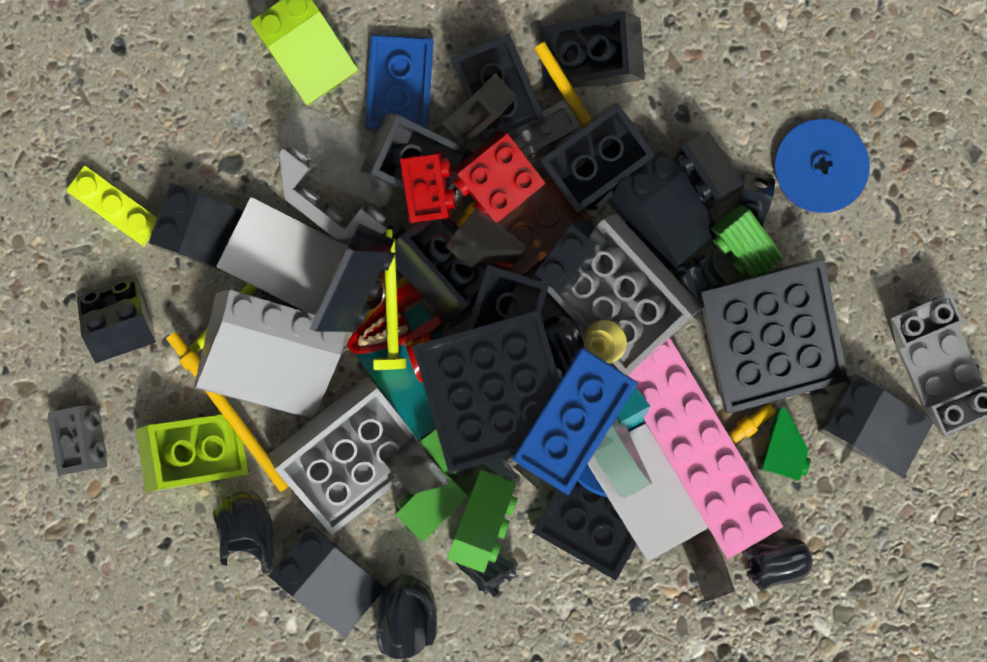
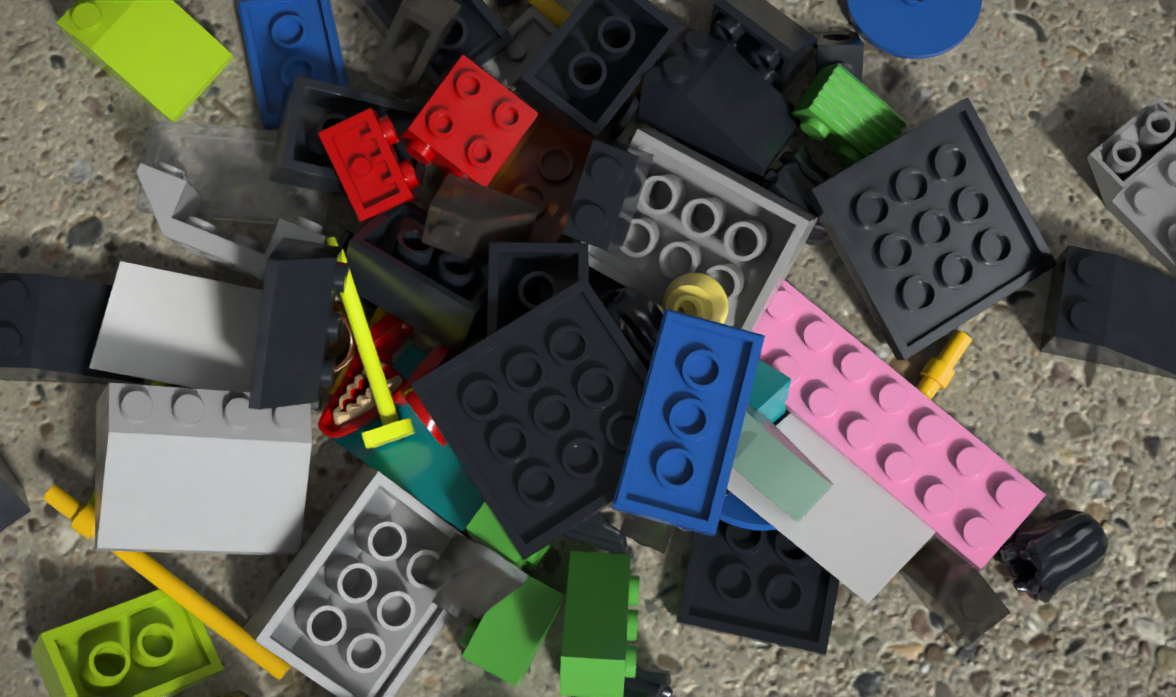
camera: 15 degrees left, 10 degrees down
(785, 449) = (1004, 386): green slope -> none

